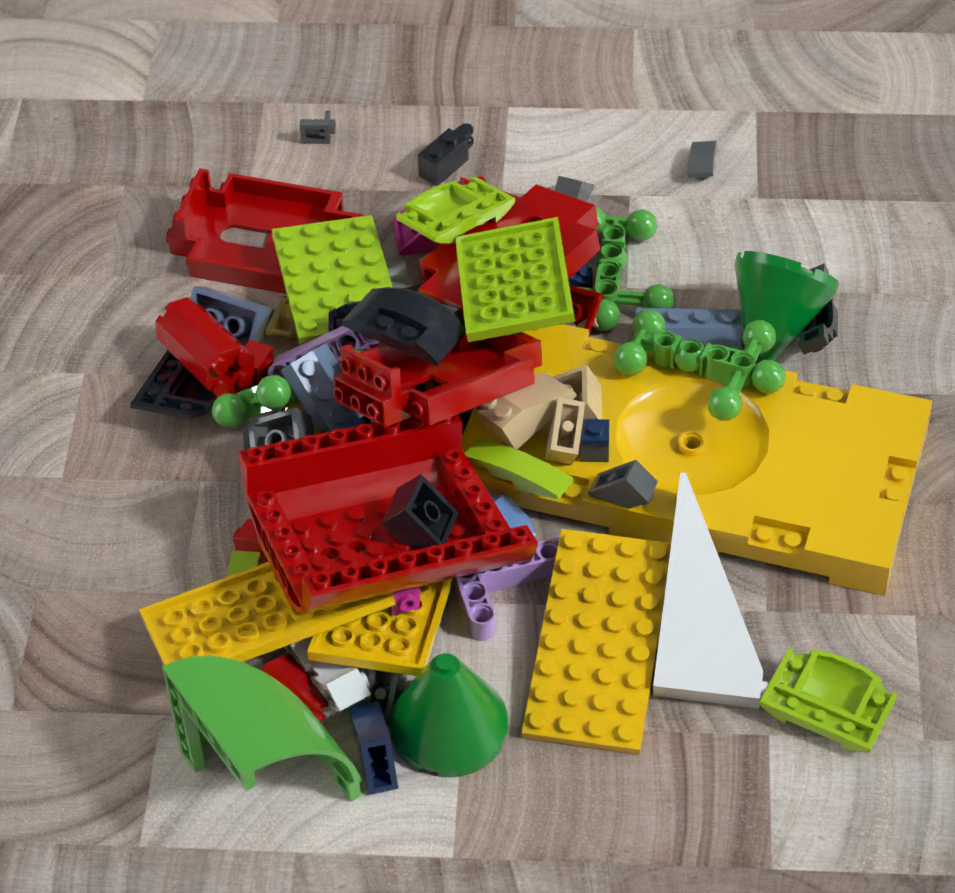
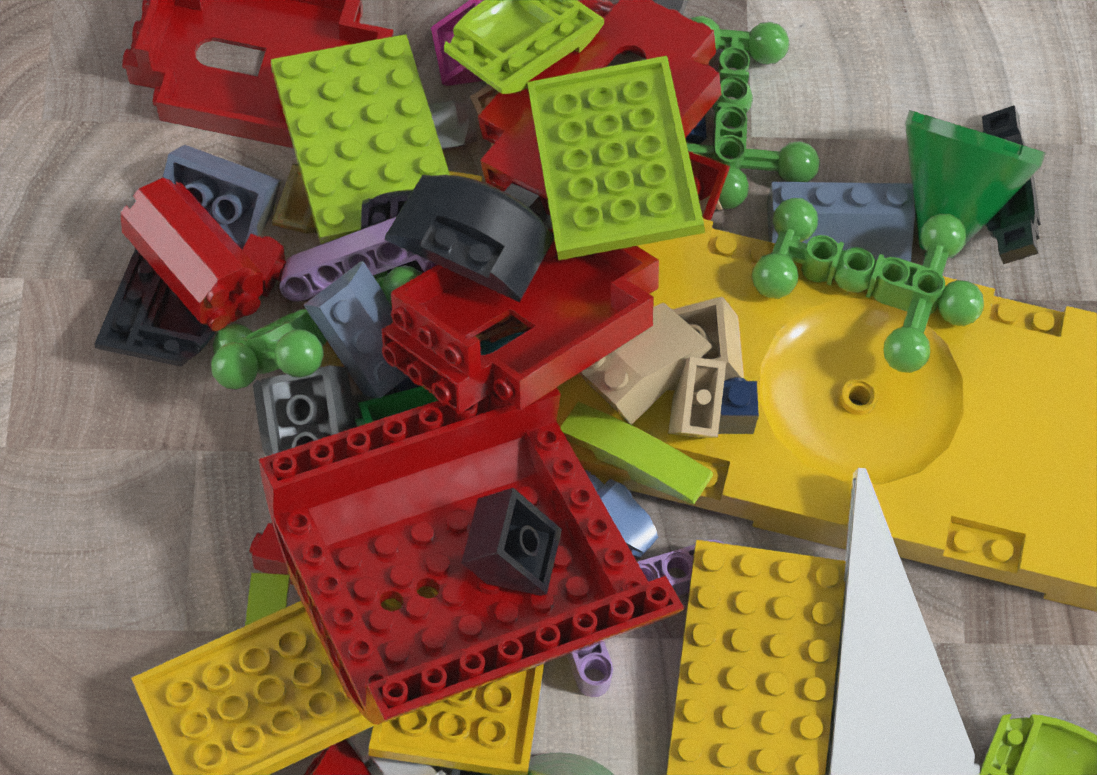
camera: 10 degrees left, 15 degrees up
(624, 485) = (779, 478): dark grey slope -> none

